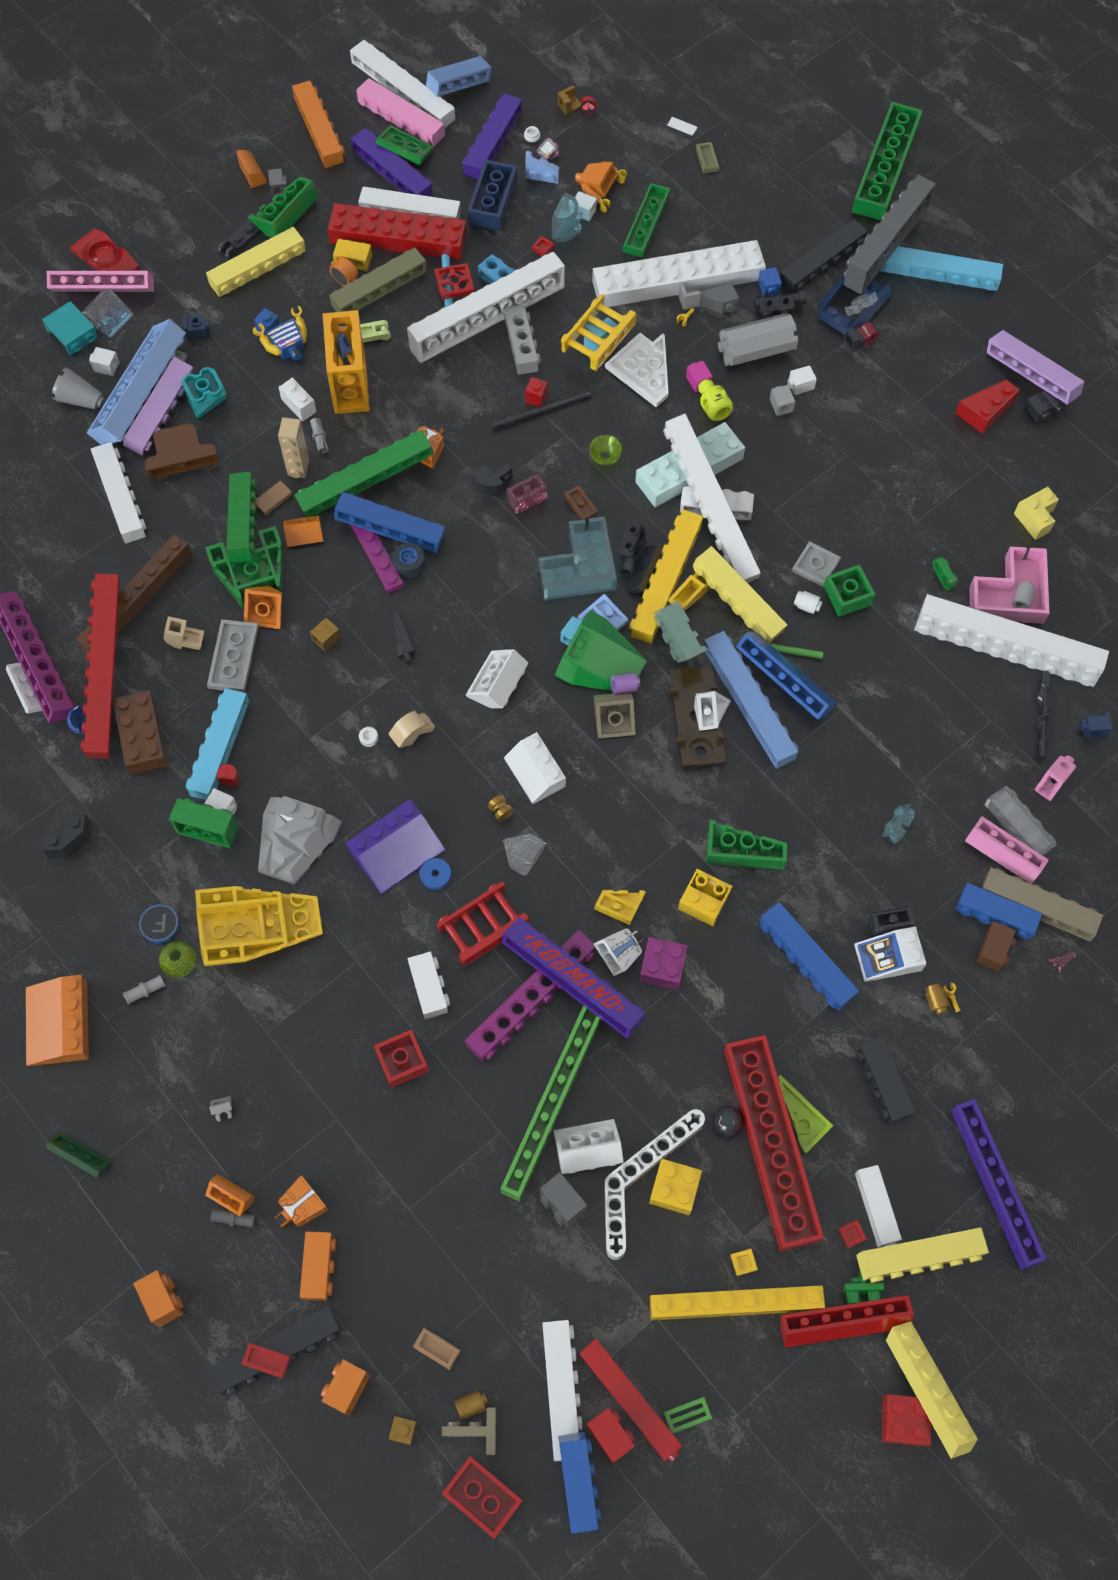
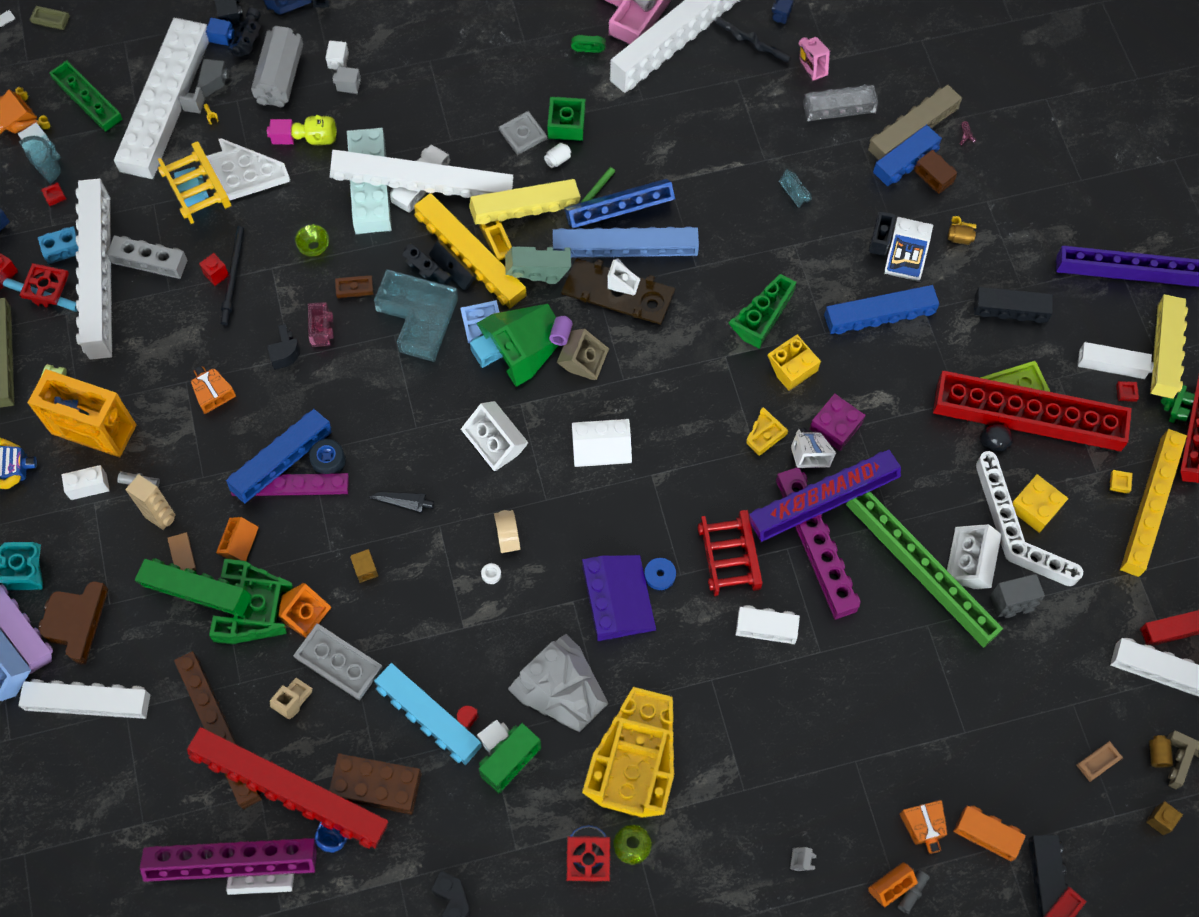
camera: 65 degrees left, 0 degrees up
(126, 921) = (574, 875): none -> red piece
(144, 989) = (651, 887): light grey pin -> none
(345, 1387) = (1112, 850): orange brick -> none
(364, 473) = (212, 455): green brick -> none
(401, 1058) = (829, 676): red brick -> none
(500, 808) = (620, 489): pearl gold wheel -> none
(523, 852) = (676, 490): clear plate -> none
(1006, 850) = (860, 122): bright pink brick -> none

